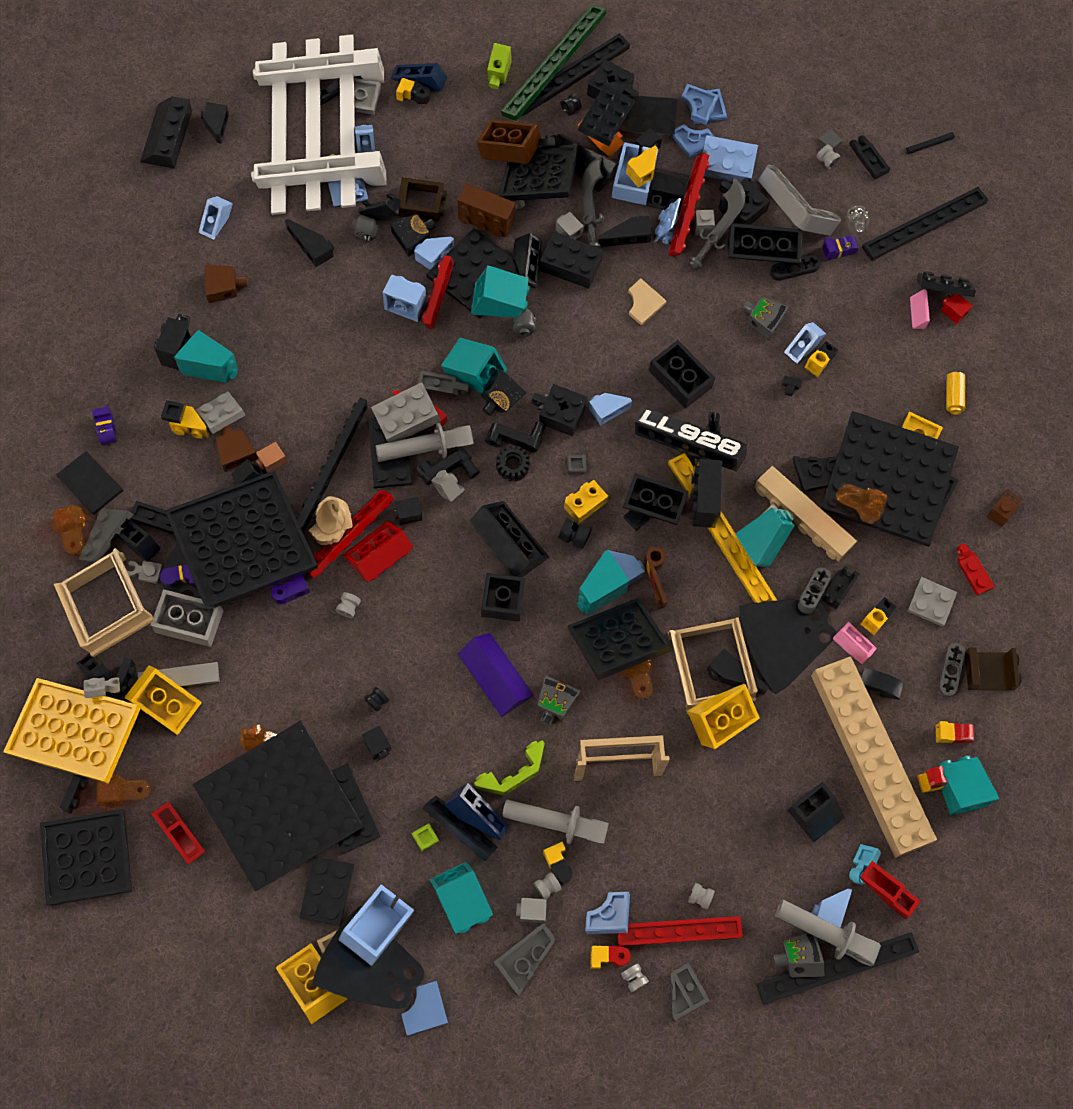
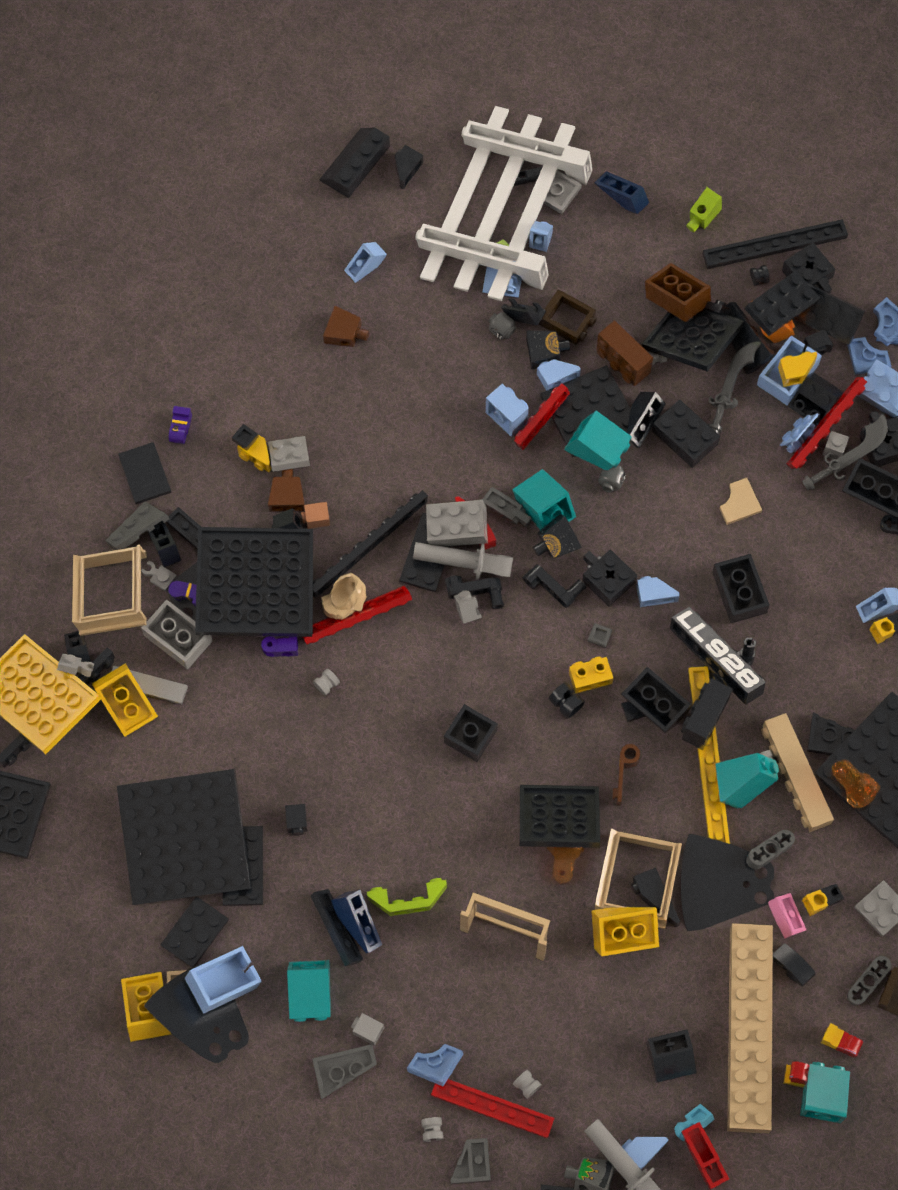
camera: 30 degrees right, 0 degrees up
(69, 522) = (110, 504): clear orange piece -> none
(120, 790) = (54, 765): clear orange piece -> none
(172, 339) = (275, 370): black hinge -> none
(178, 832) = (88, 823): red slope -> none
(206, 359) = (296, 398): teal slope -> none
(254, 736) = (189, 766): clear orange piece -> none
(312, 243) = (444, 322): black slope -> none
(376, 699) = (313, 779): black wheel -> none
(378, 551) = (375, 643): red slope -> none
(408, 511) = (420, 616): black brick -> none
(413, 91) = (609, 204): leg -> none
(425, 837) = (302, 922): lime tile -> none
(426, 1011) = (235, 1075): medium blue tile -> none
(495, 674) = (432, 801): dark purple slope -> none
(508, 538) = (502, 680): black slope -> none
(512, 453) = (533, 600): black tyre -> none
(547, 886) = (391, 1013): light grey wheel -> none
(553, 62) = (761, 226): dark green plate -> none
(555, 700) = (476, 849): torso -> none
(557, 863) = (410, 1006): leg -> none
(569, 226) = (699, 399): light grey brick -> none
(570, 824) = (437, 968): light grey piece -> none
(602, 585) = (567, 760): teal slope -> none
(609, 954) = (418, 1099): leg -> none
(631, 567) = (598, 752): medium blue slope -> none
(632, 231) = (758, 427): black slope -> none
(765, 316) = (853, 563): dark grey torso -> none
(791, 384) = (845, 640): black tile -> none
(839, 587) = (797, 857): black hinge -> none

